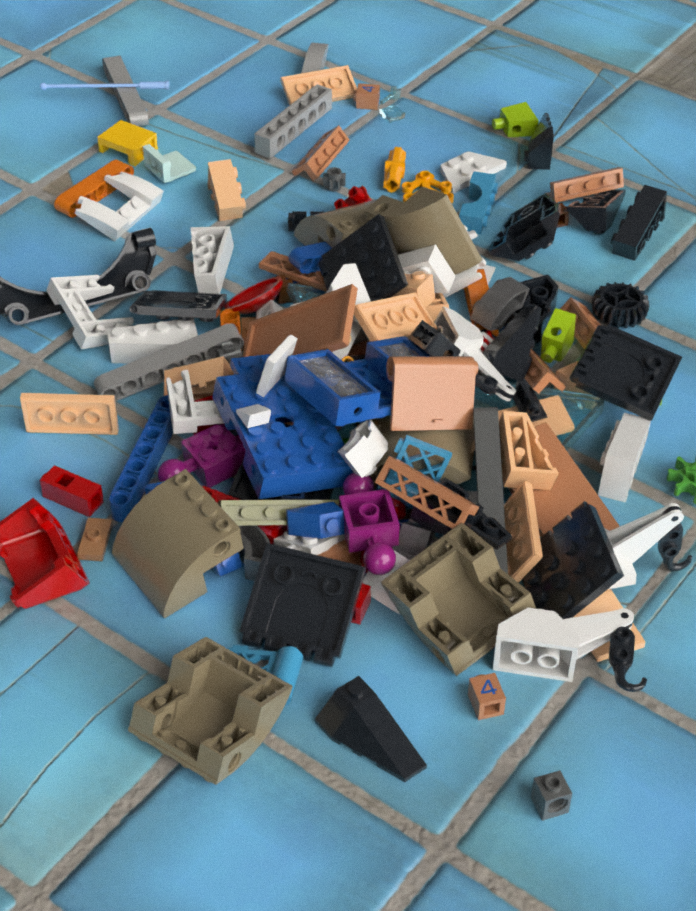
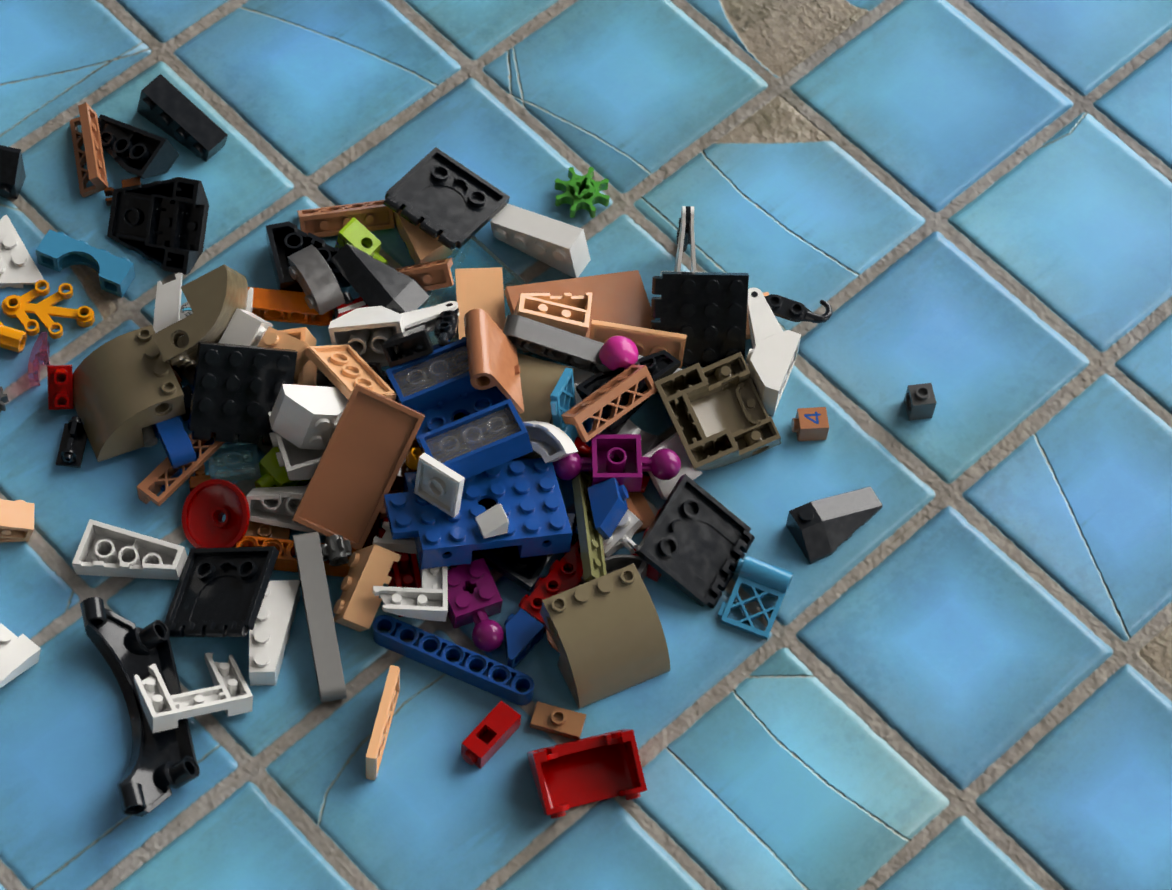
camera: 85 degrees left, 15 degrees up
(210, 710) = (802, 635): dark tan slope -> none
(376, 190) = (39, 356): none -> clear pink slope
(491, 497) = (618, 352): none -> dark pink hair
(527, 401) = (467, 296): black hinge -> none
(620, 304) = (310, 184): black gear -> none

